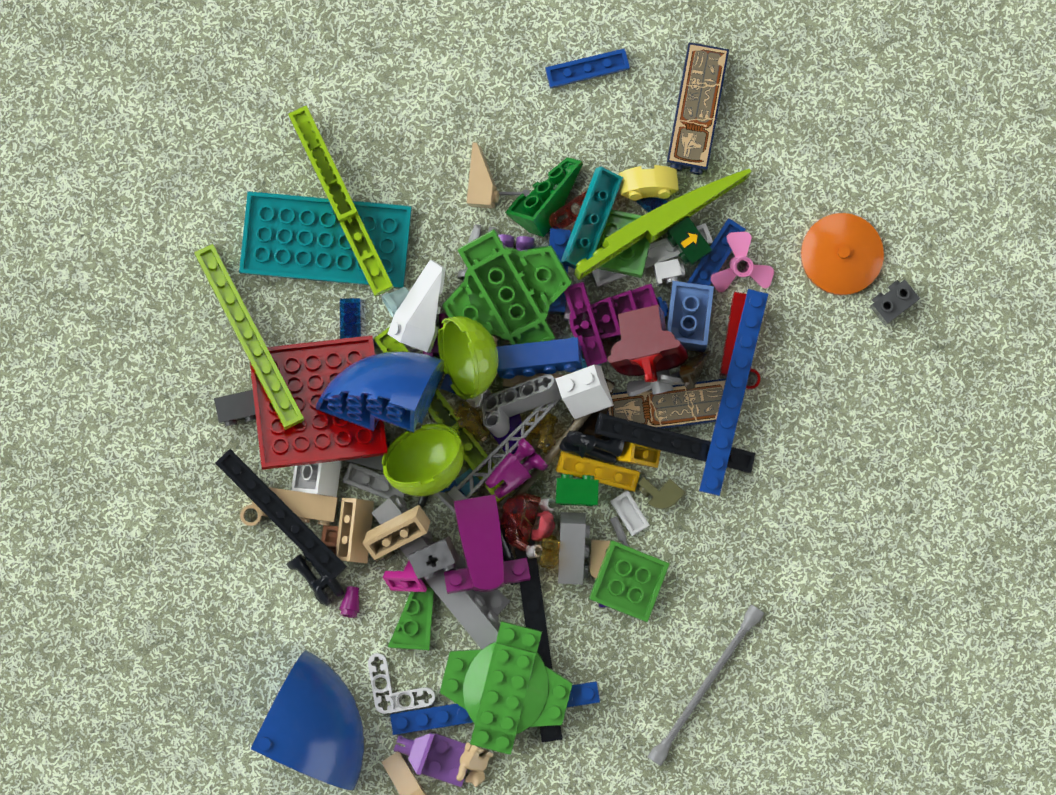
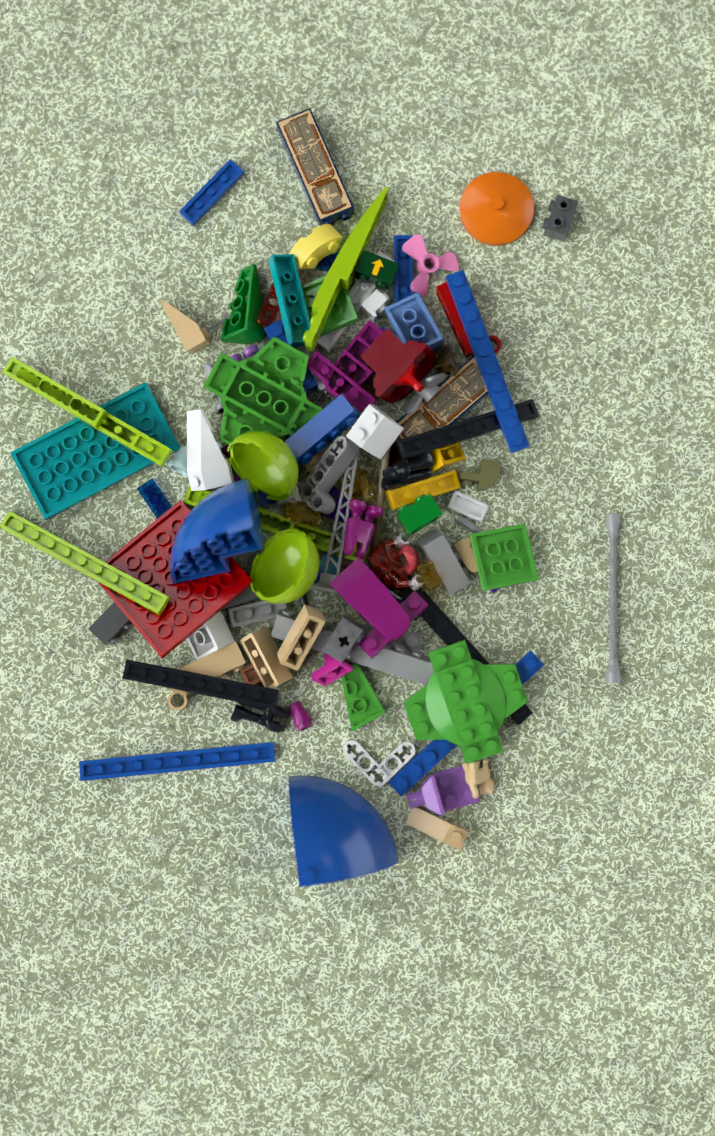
camera: 40 degrees left, 0 degrees up
(215, 569) = (177, 761): none -> blue plate

